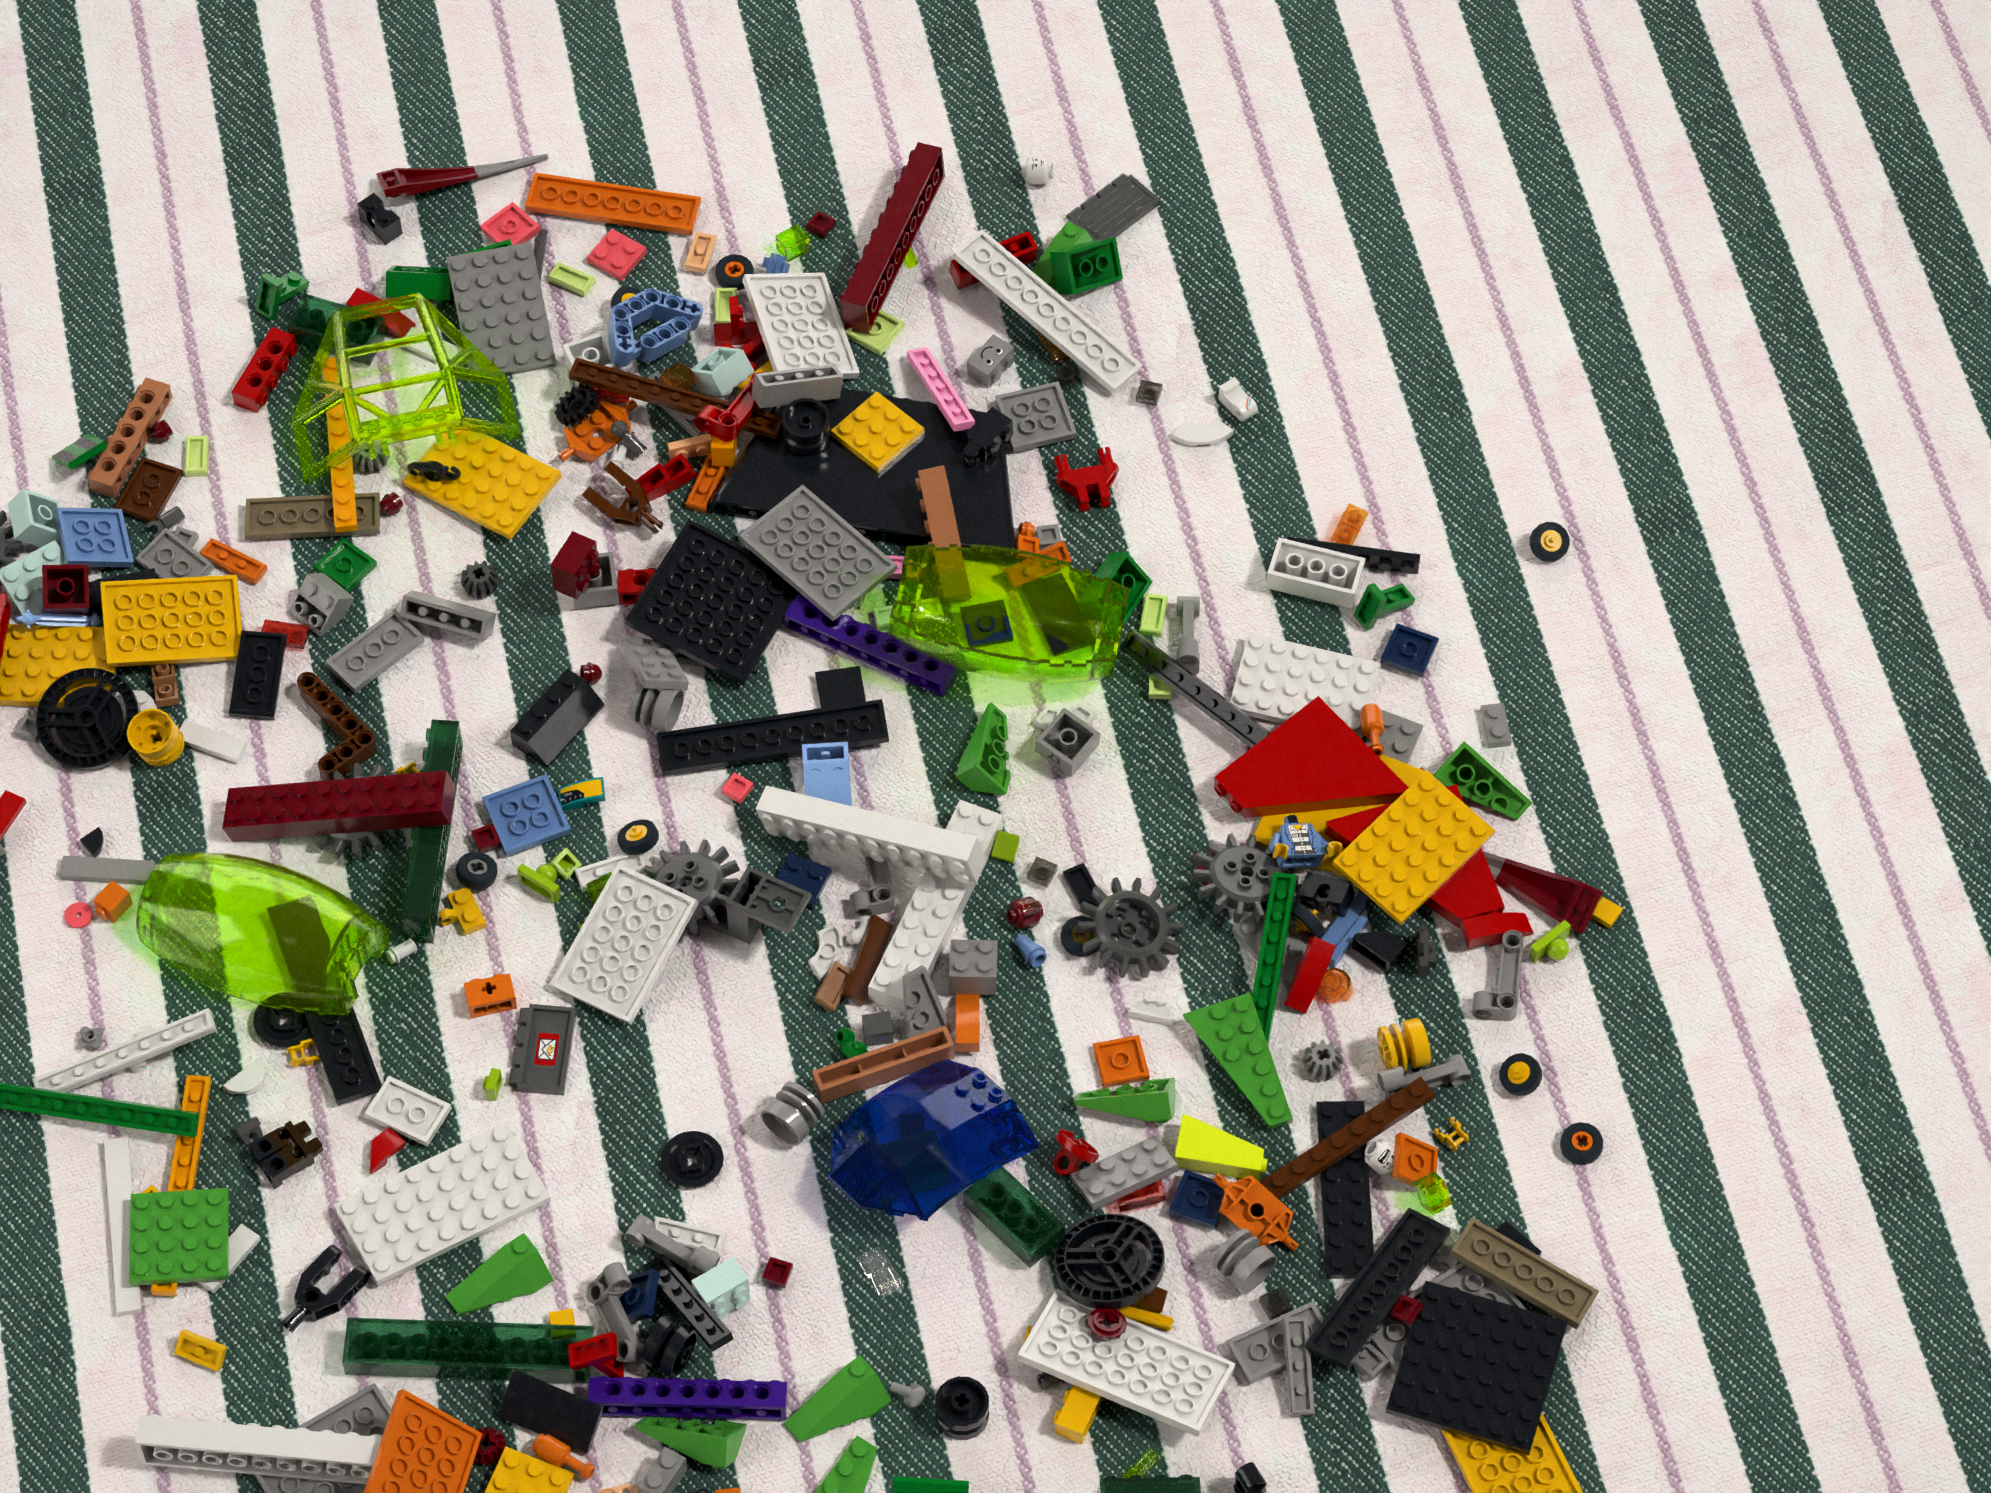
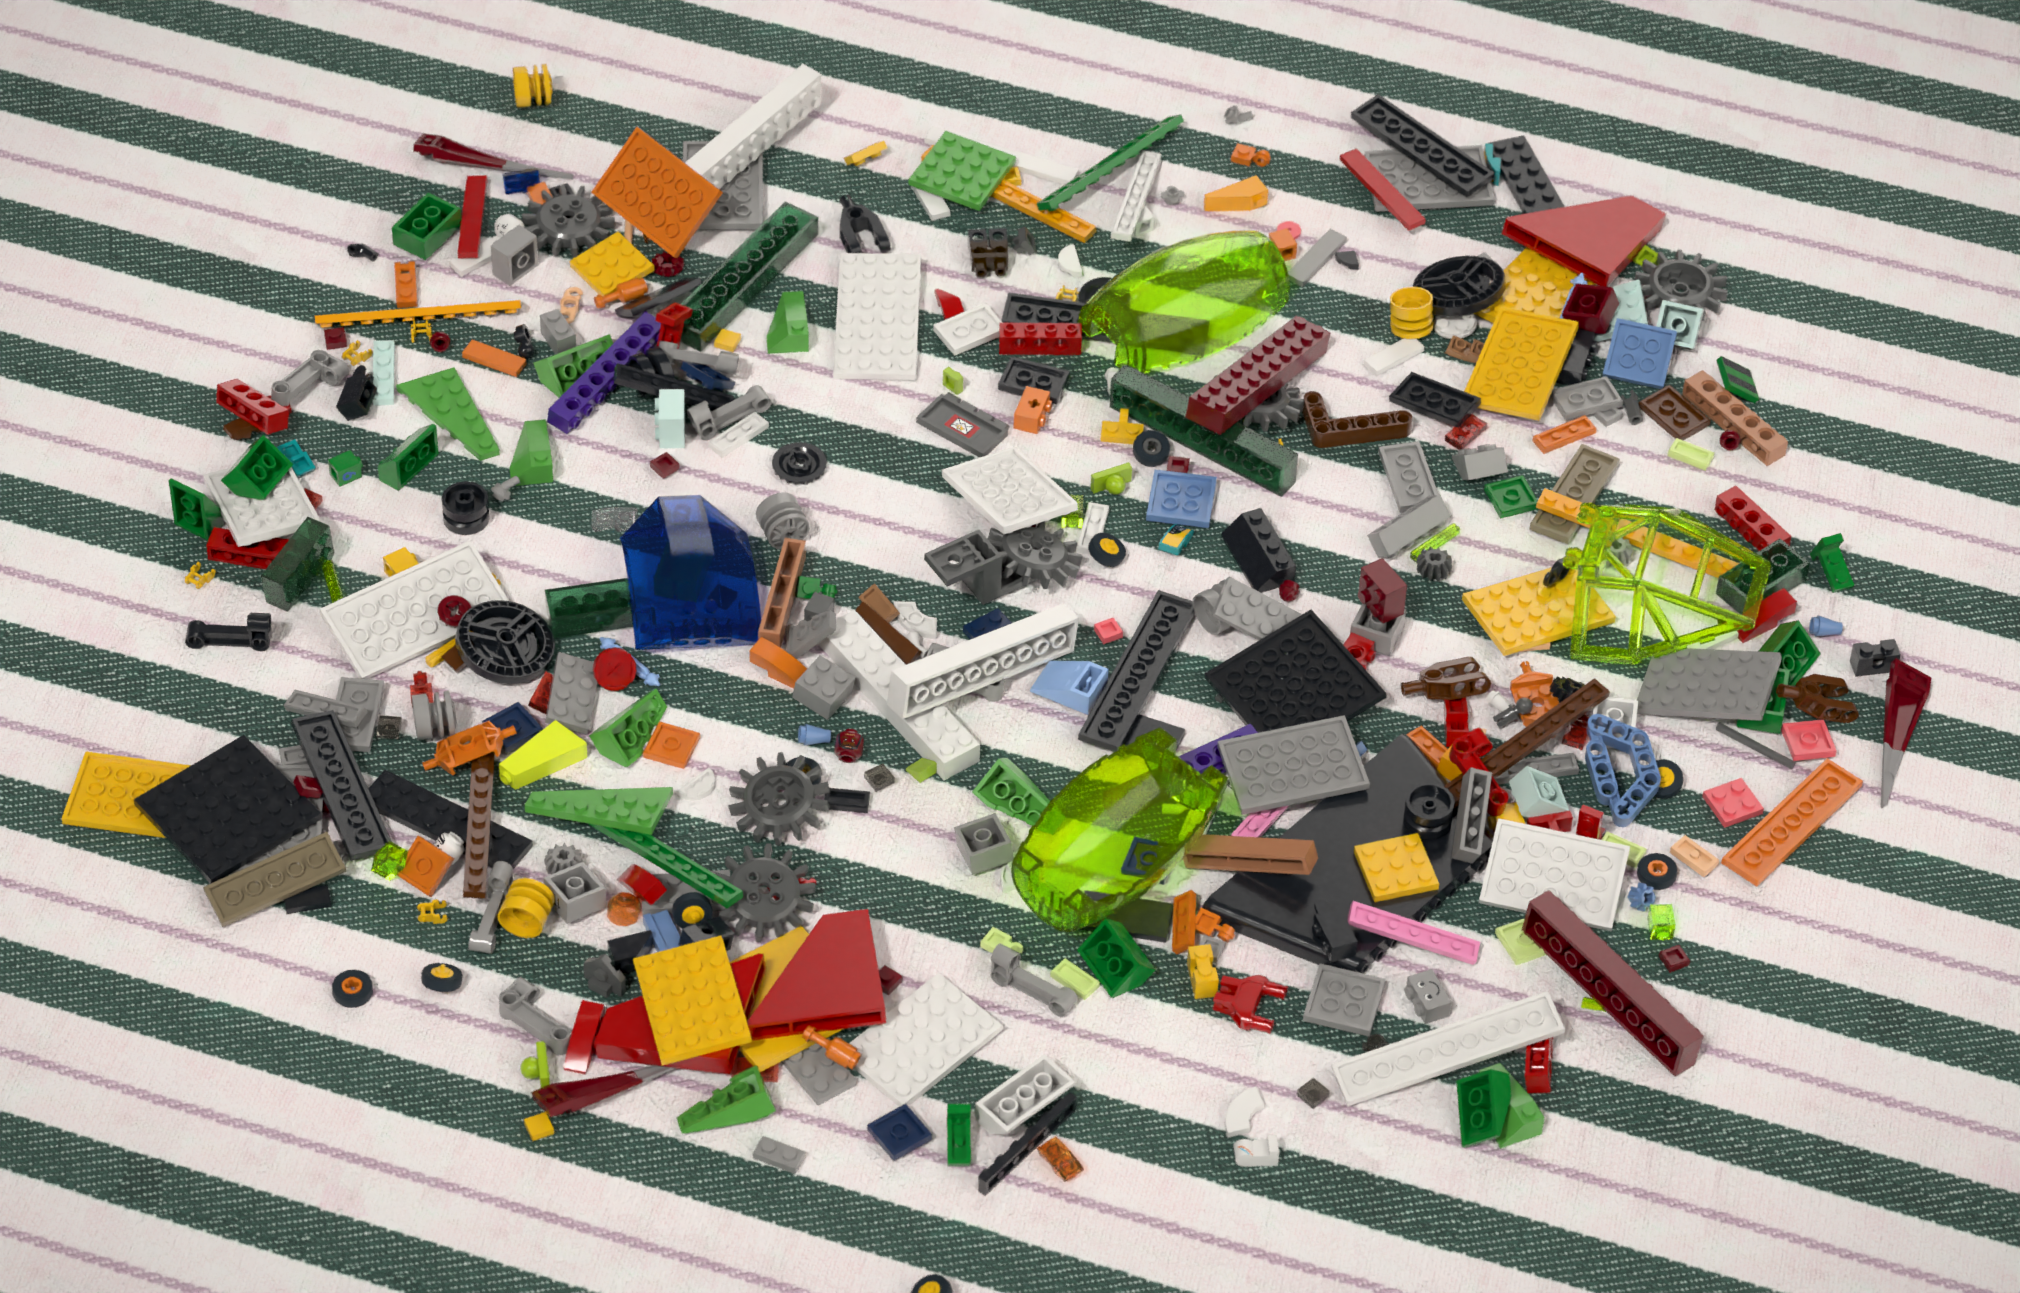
camera: 120 degrees right, 10 degrees down
(55, 970) = (1240, 196): none -> light orange slope
(363, 271) = (1823, 626): none -> medium blue cone
(386, 1038) = (1040, 338): none -> red brick
(391, 503) = (1553, 545): dark red plate -> none
(445, 1018) = (1025, 373): none -> black plate
(448, 594) = (1437, 540): none -> clear neon green axle
(465, 238) = (1811, 699): none -> reddish brown piece
(565, 863) = (1121, 504): lime slope -> none
(571, 279) = (1725, 761): yellowish green tile -> none
(678, 376) = (1550, 762): clear orange hair -> none
(1037, 170) = (1628, 1137): white head -> none
(1047, 1154) = (642, 671): none -> light blue wheel
(1073, 525) = (1205, 977): none -> yellow brick
(1114, 208) = (1548, 1178): dark grey hinge -> none
(1193, 689) = (957, 951): black plate -> none
(1215, 1300) = (421, 686): none -> clear red plate
(1300, 845) = (762, 932): torso -> none
(1354, 1023) = (576, 892): none -> light grey brick

